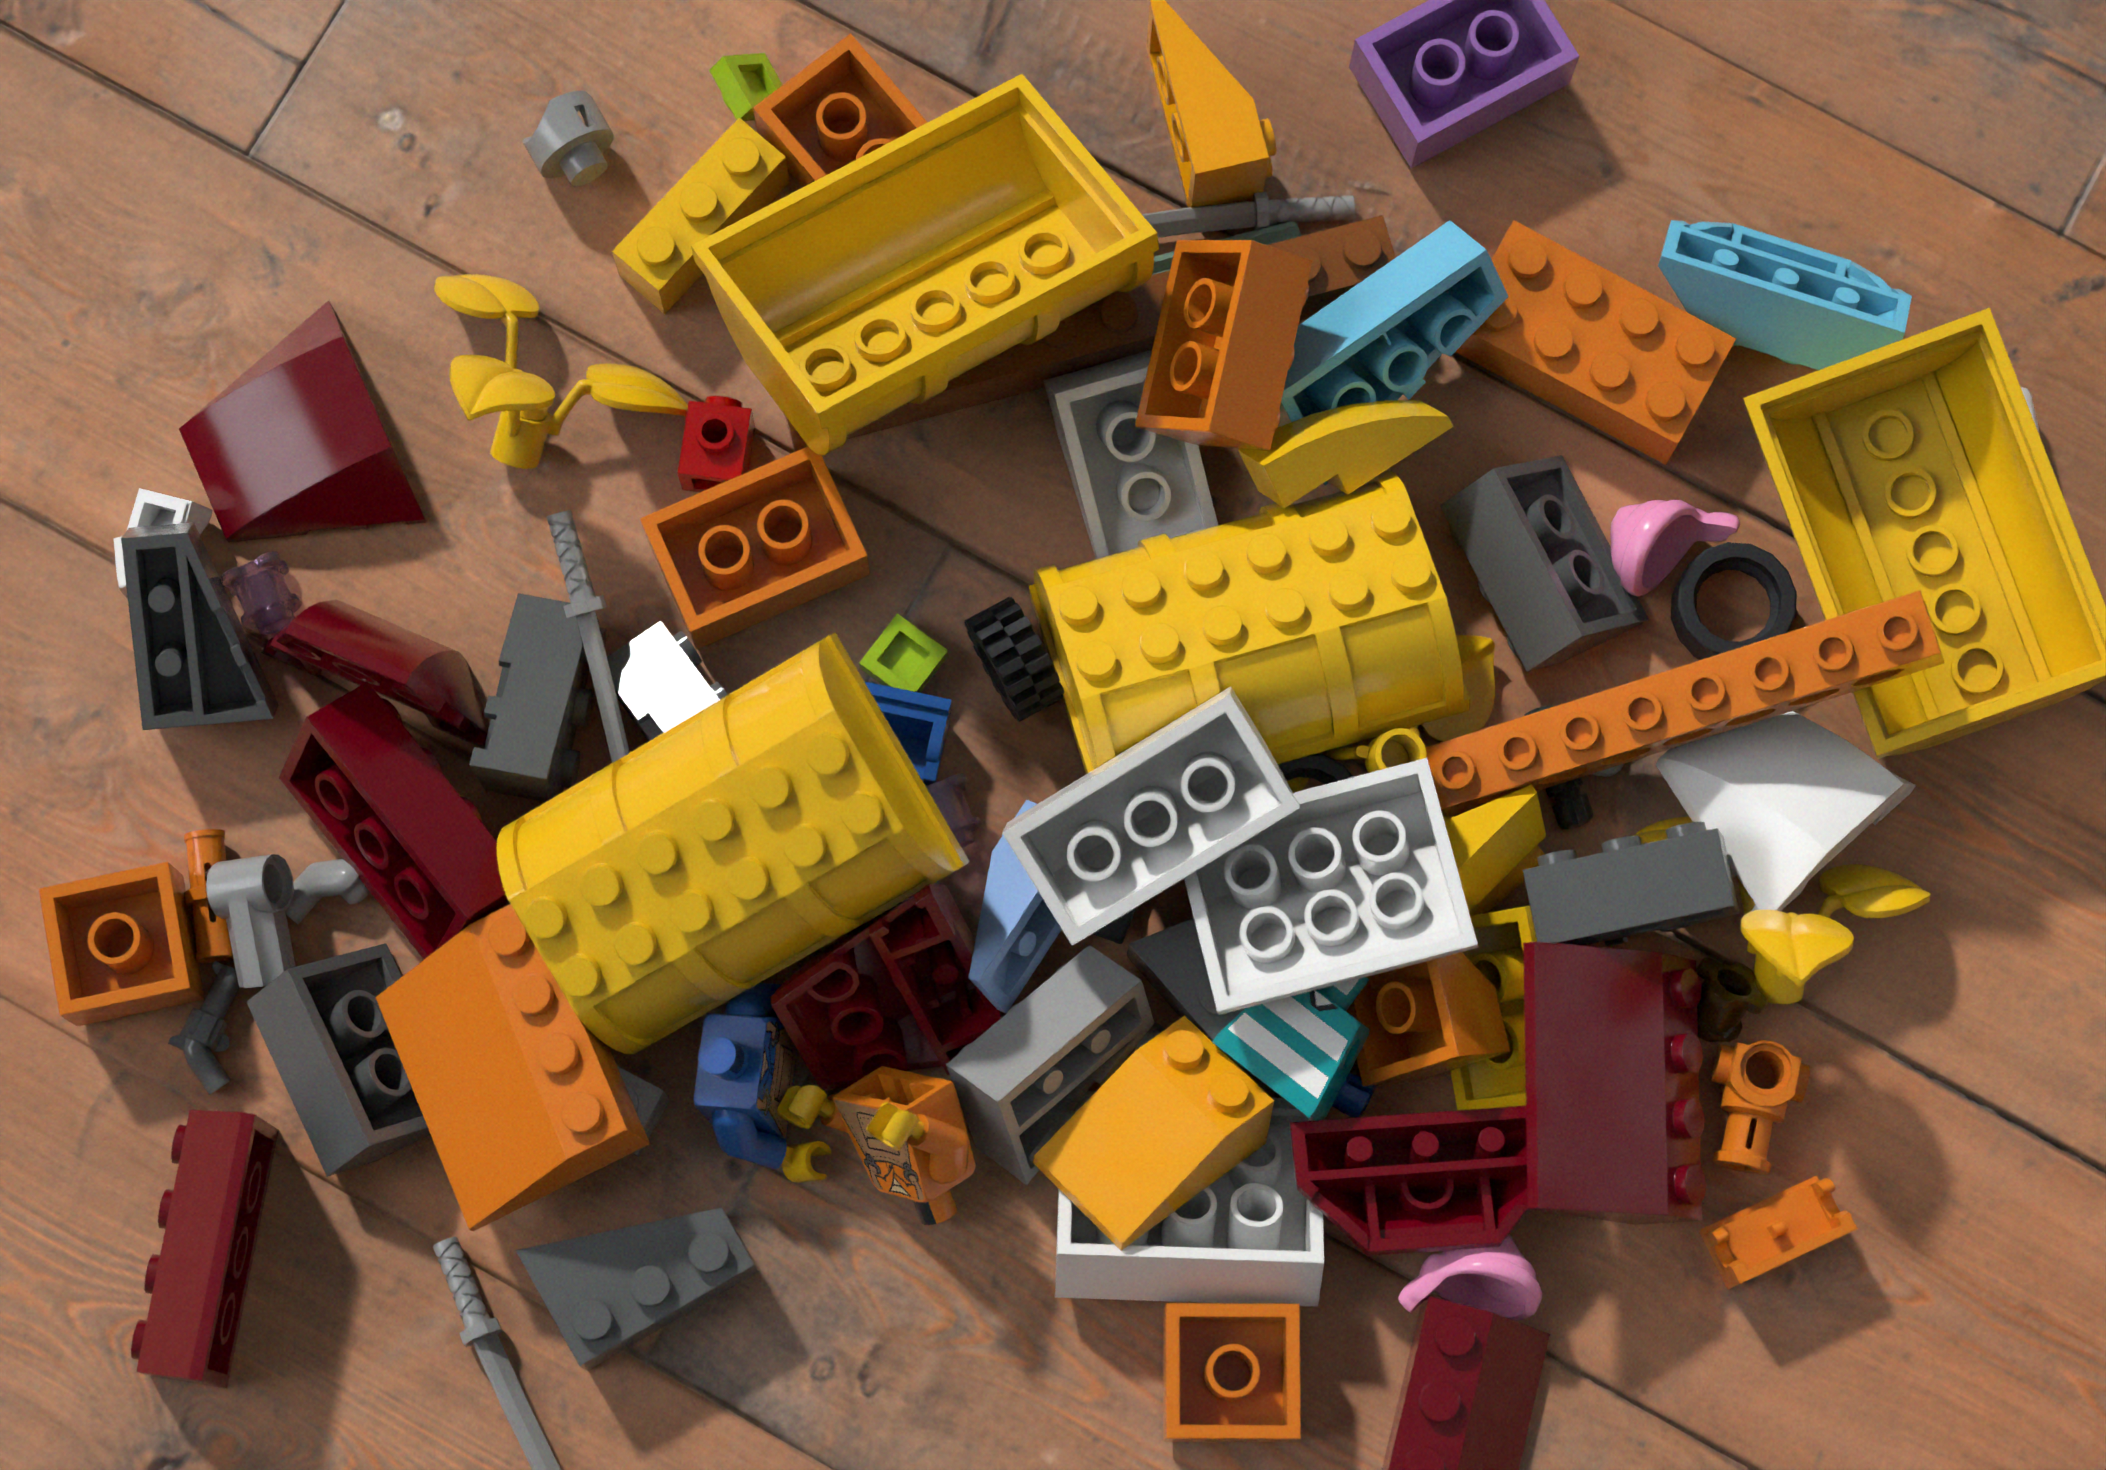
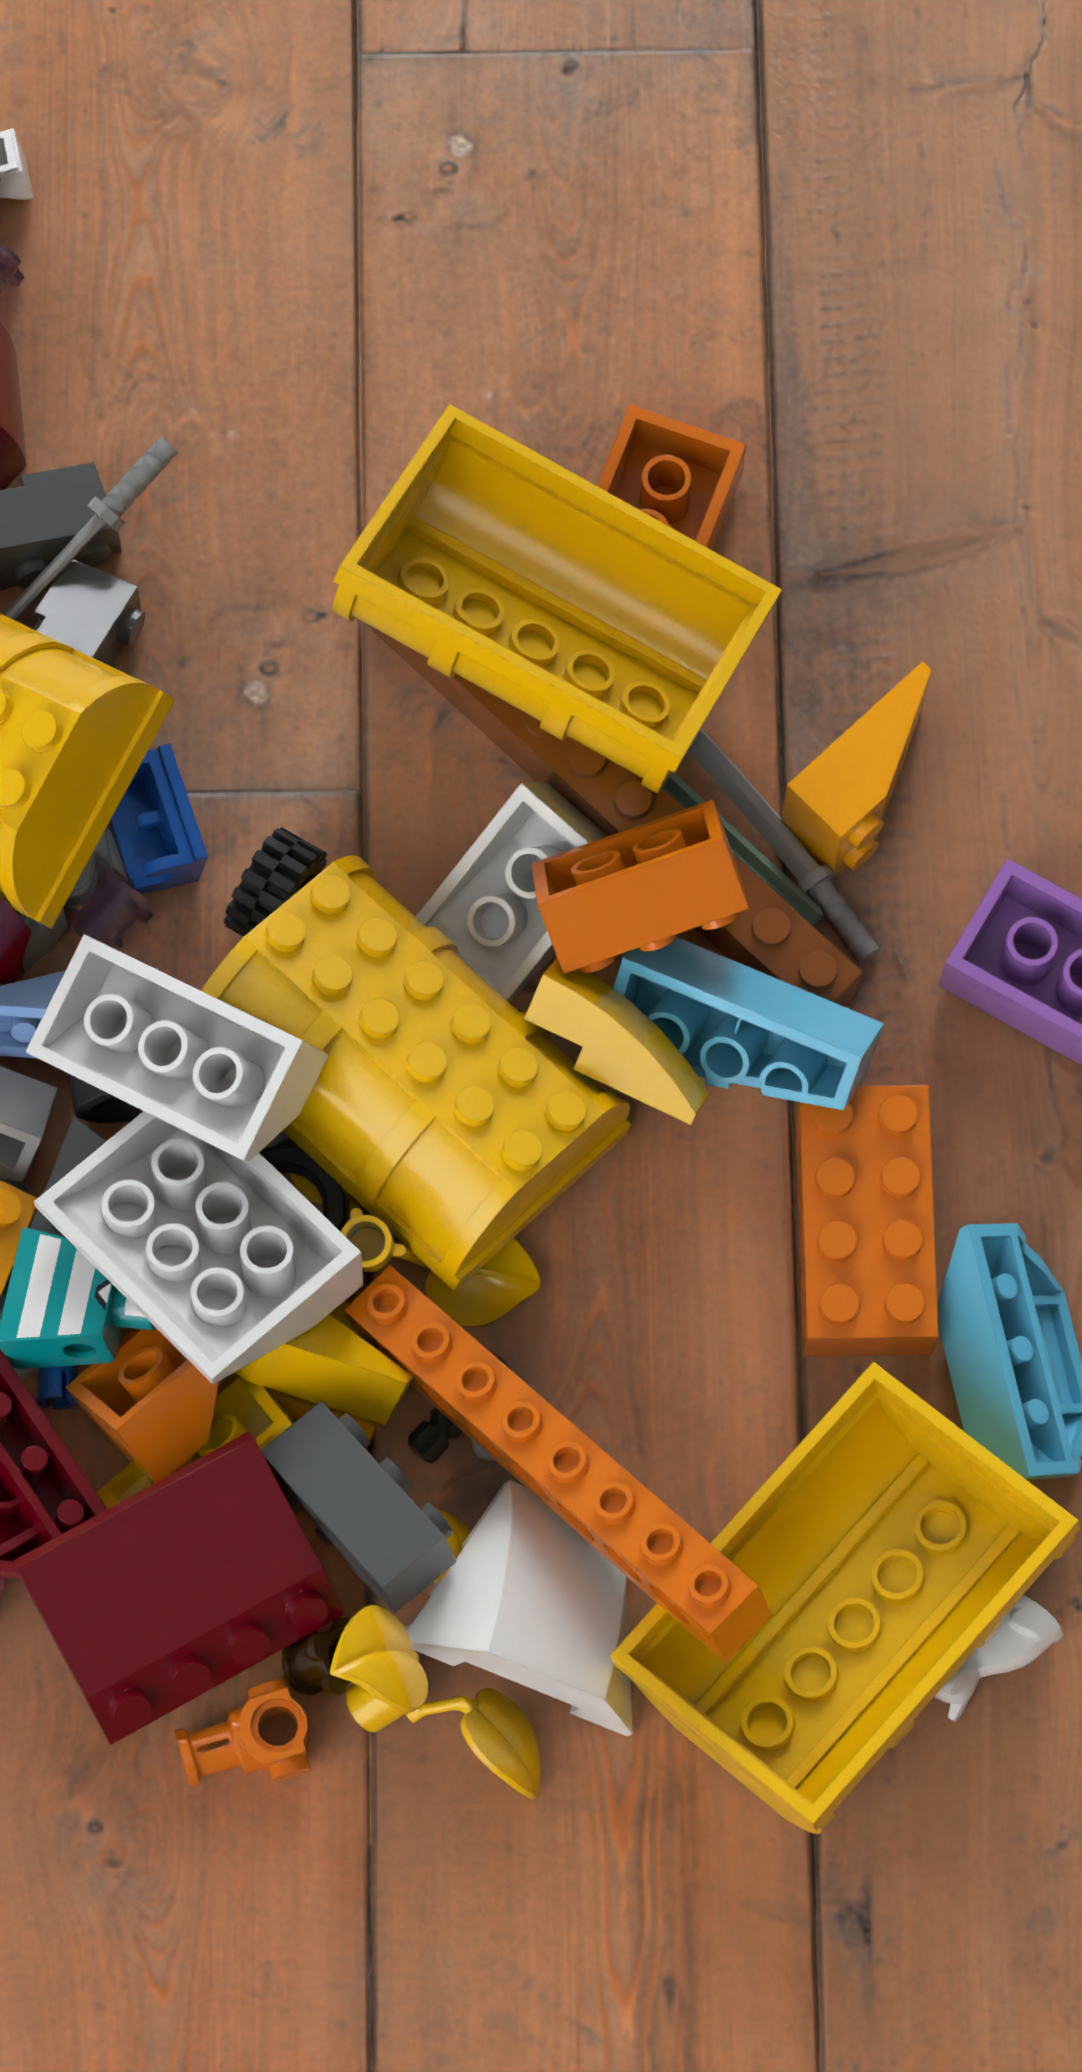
camera: 60 degrees right, 5 degrees down
(299, 443) = (132, 231): dark red wedge -> none
(522, 398) = (241, 328): yellow plant -> none
(568, 146) = (511, 286): light grey piece -> none
(715, 443) = (315, 549): red brick -> none
(721, 188) = (556, 423): yellow brick -> none
(745, 82) = (663, 392): lime plate -> none
(756, 546) = (249, 628): orange brick -> none
(903, 657) = (229, 805): lime plate -> none
(1541, 561) = (640, 1291): dark grey slope -> none
(1656, 535) = (716, 1376): bright pink hat -> none
(1736, 557) = (714, 1431): black tyre -> none
(1776, 1230) = (142, 1823): orange hinge -> none

